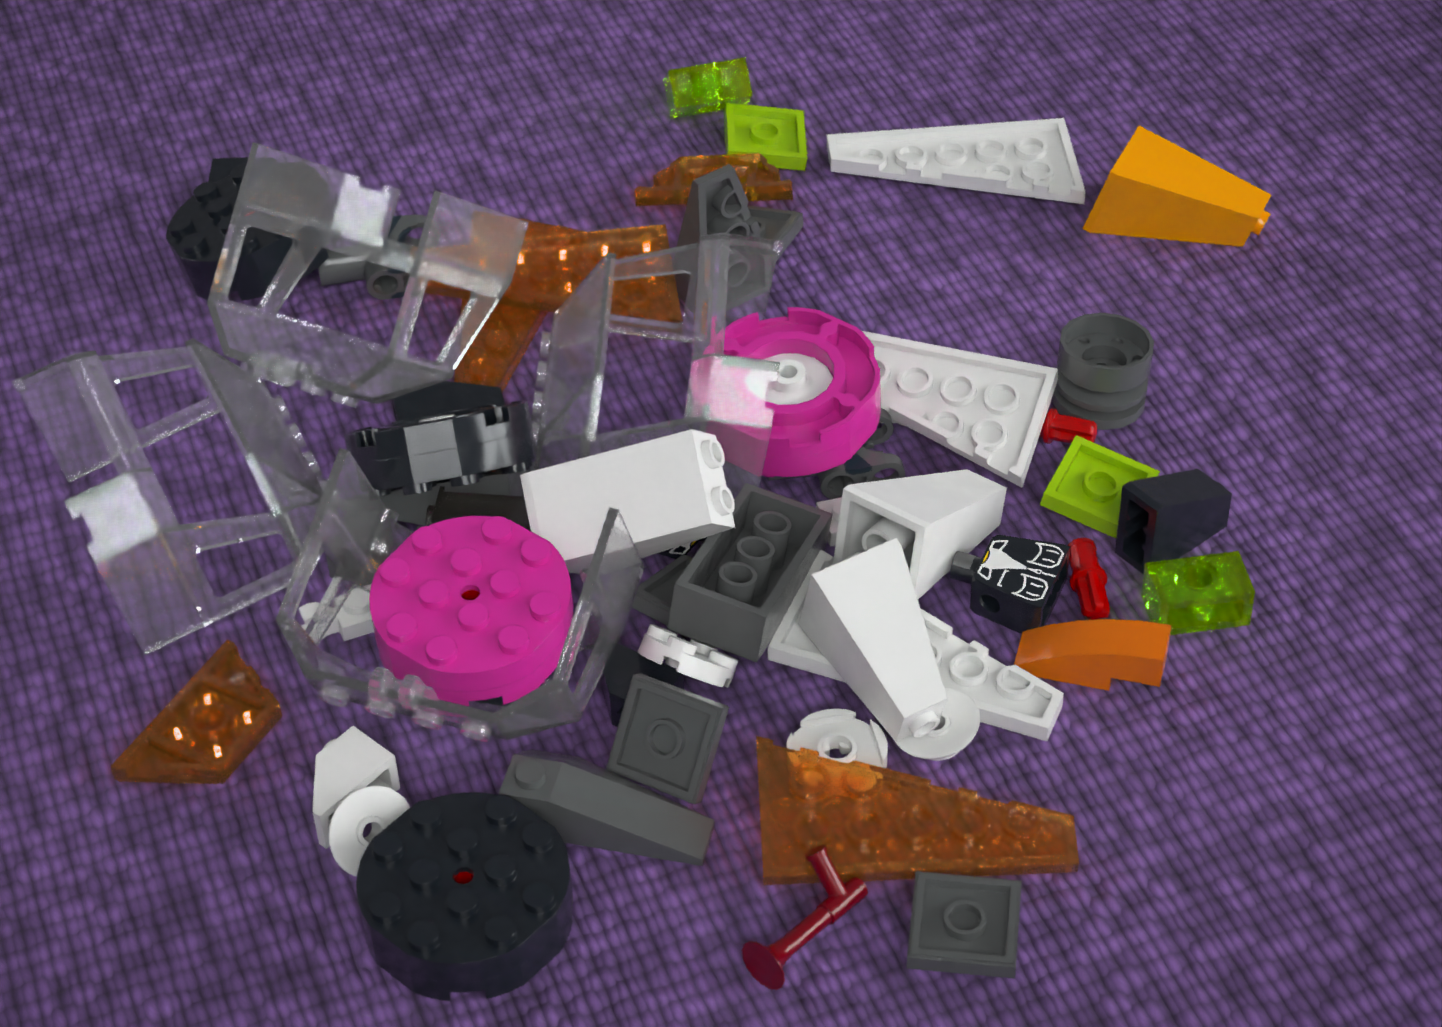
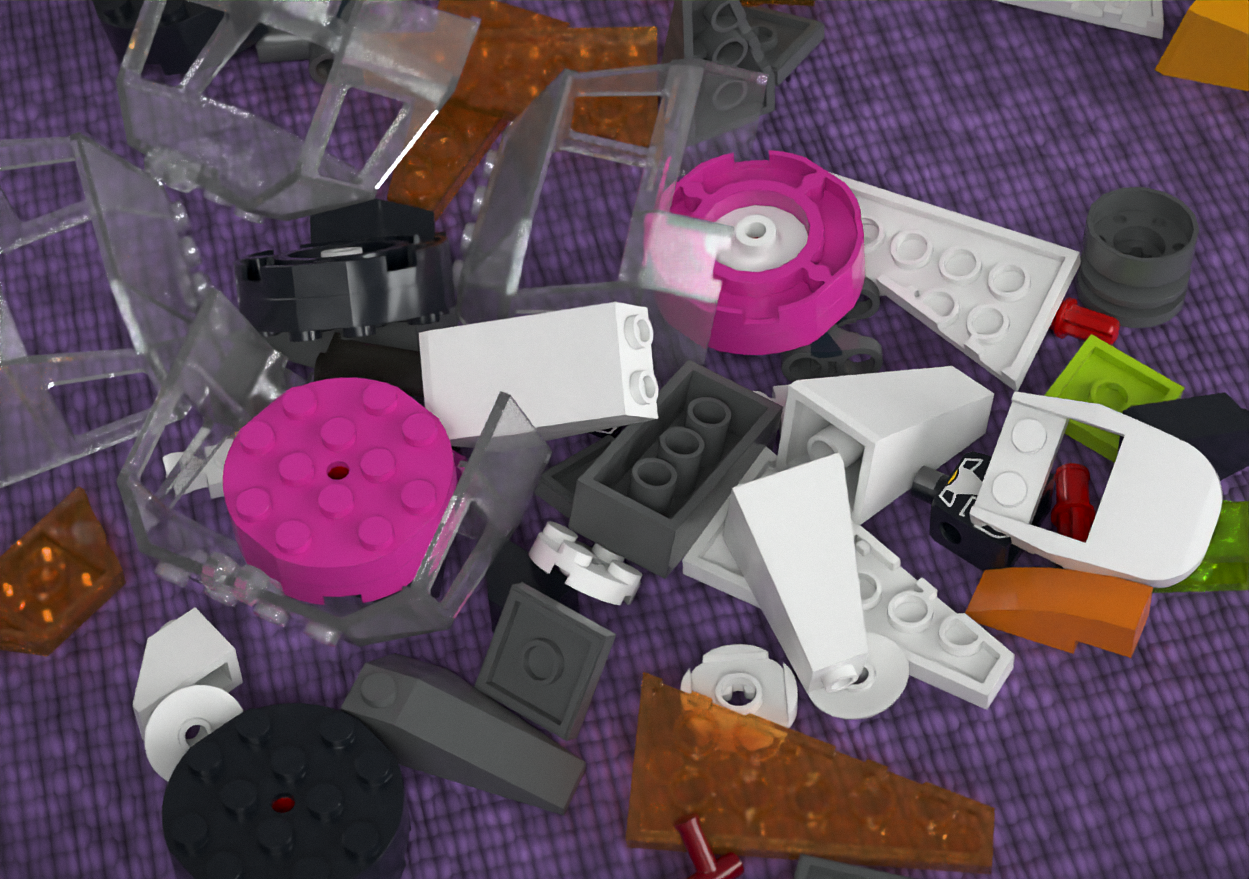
camera: 10 degrees right, 5 degrees up
(1162, 564) = (1152, 512): none -> white slope

